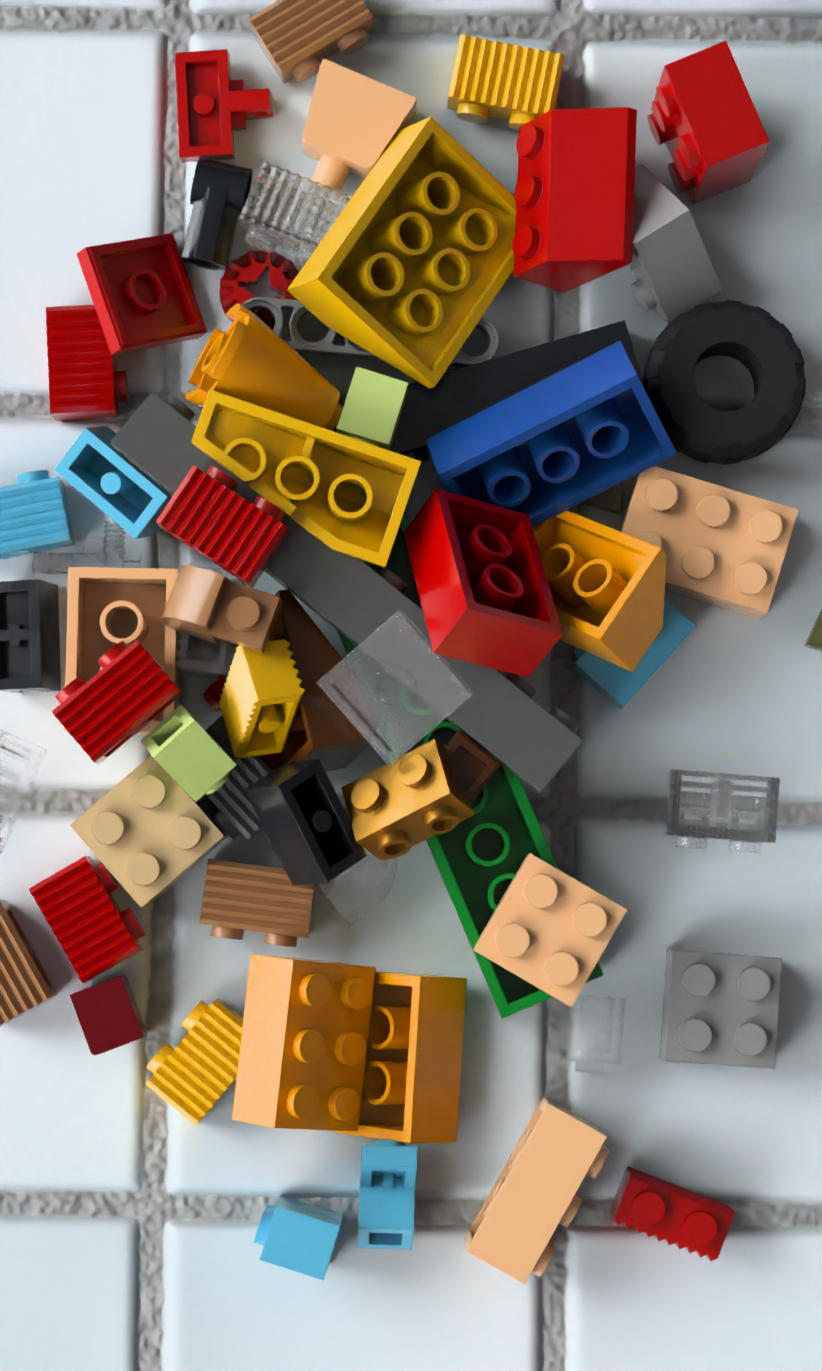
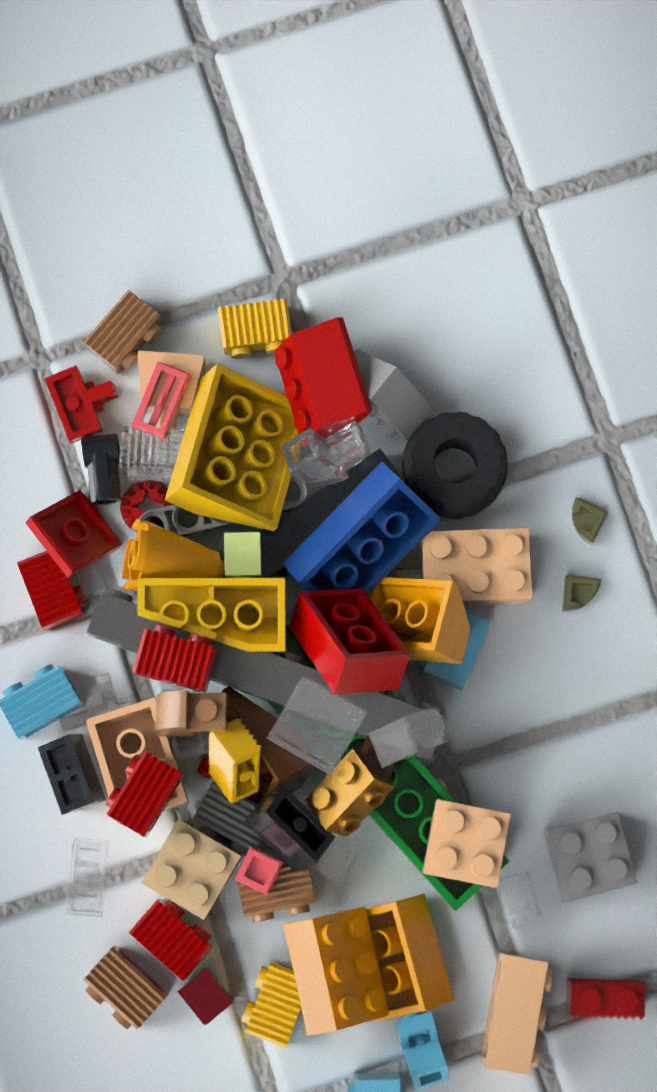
camera: 15 degrees left, 5 degrees down
(113, 482) = (96, 657): medium azure brick -> none
(189, 754) = (201, 811): yellowish green brick -> none
(242, 865) = (258, 870): none -> coral tile
(303, 177) = (151, 428): none -> coral tile
(520, 750) = (409, 736): none -> clear slope
(541, 311) = (326, 460): none -> clear brick
(707, 123) = (389, 311): red brick -> none
(721, 808) = (546, 730): clear brick -> none

